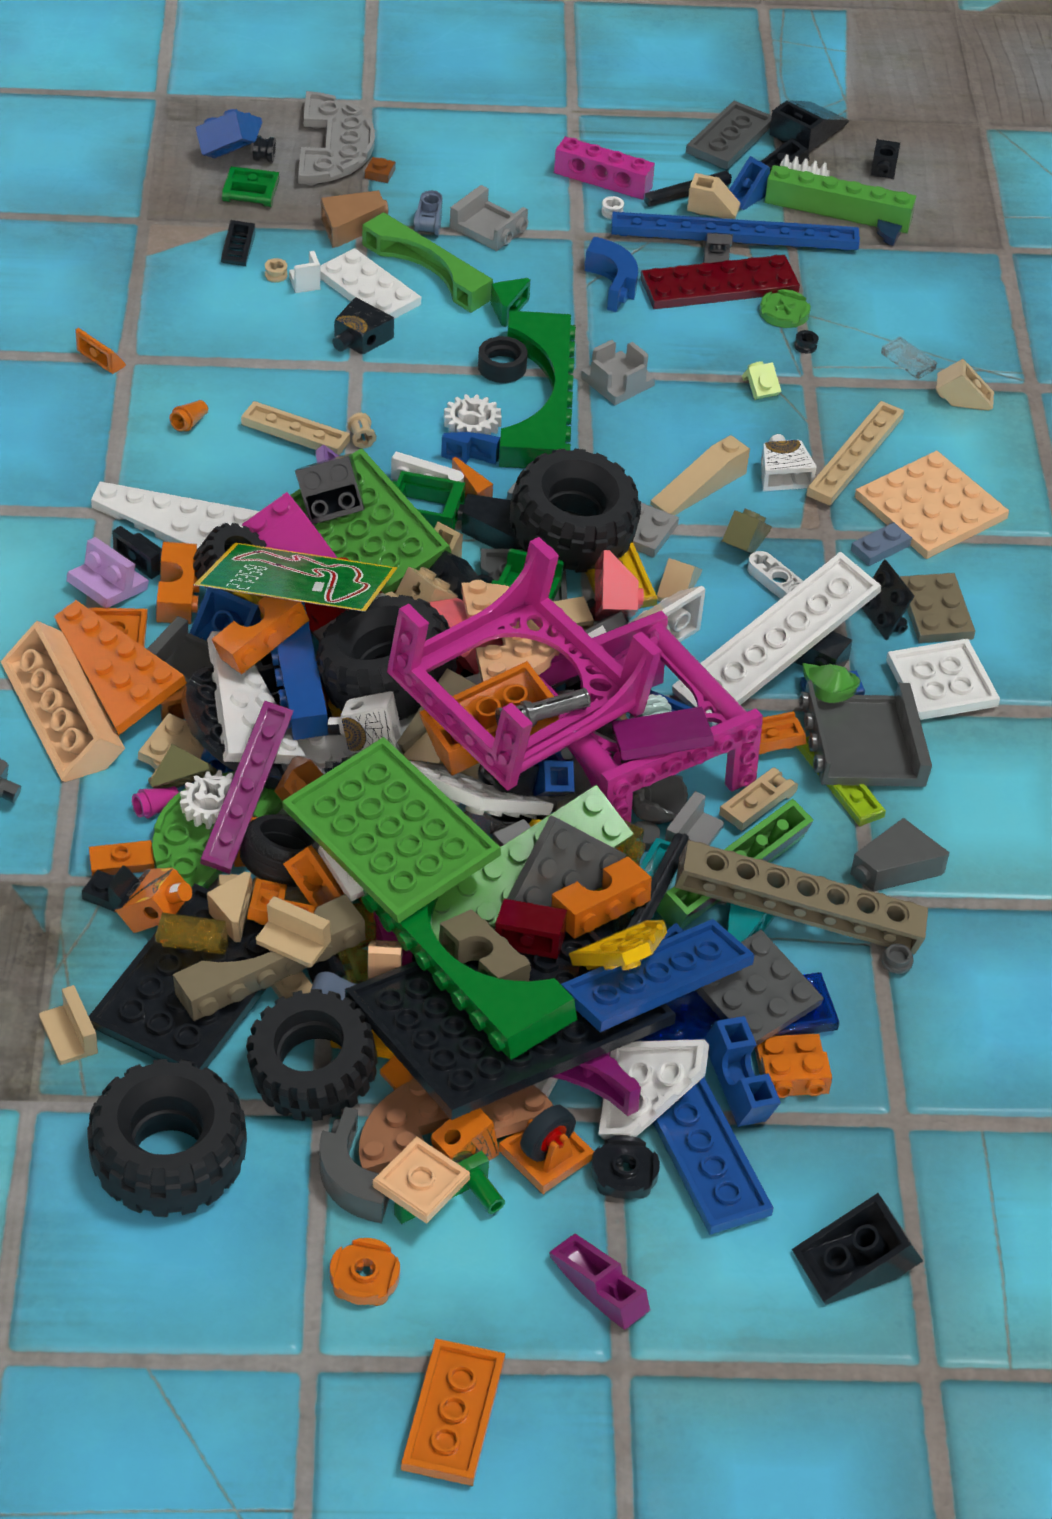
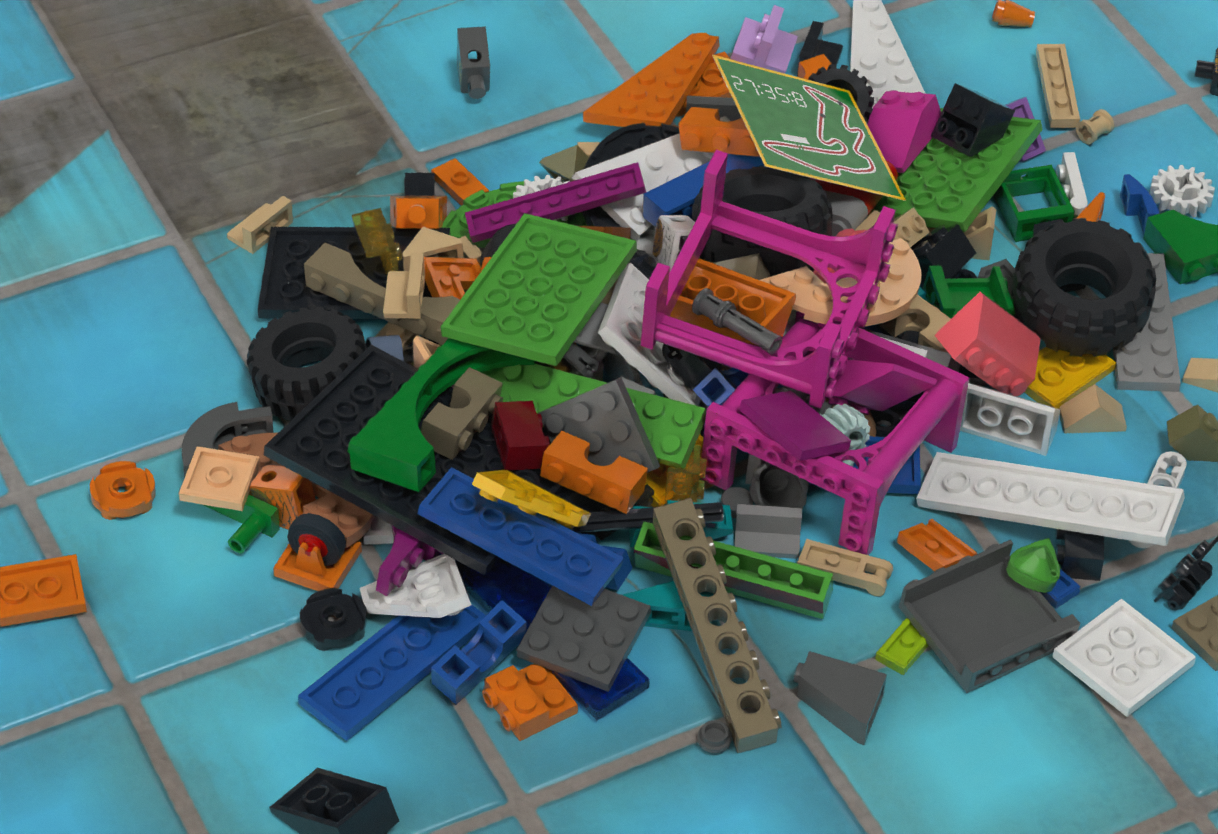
camera: 65 degrees right, 0 degrees up
(61, 703) = (610, 67): light nougat slope -> none
(152, 801) = (528, 168): dark pink cone -> none
(159, 1100) = (169, 283): black tyre -> none
(601, 1281) = (199, 643): magenta slope -> none

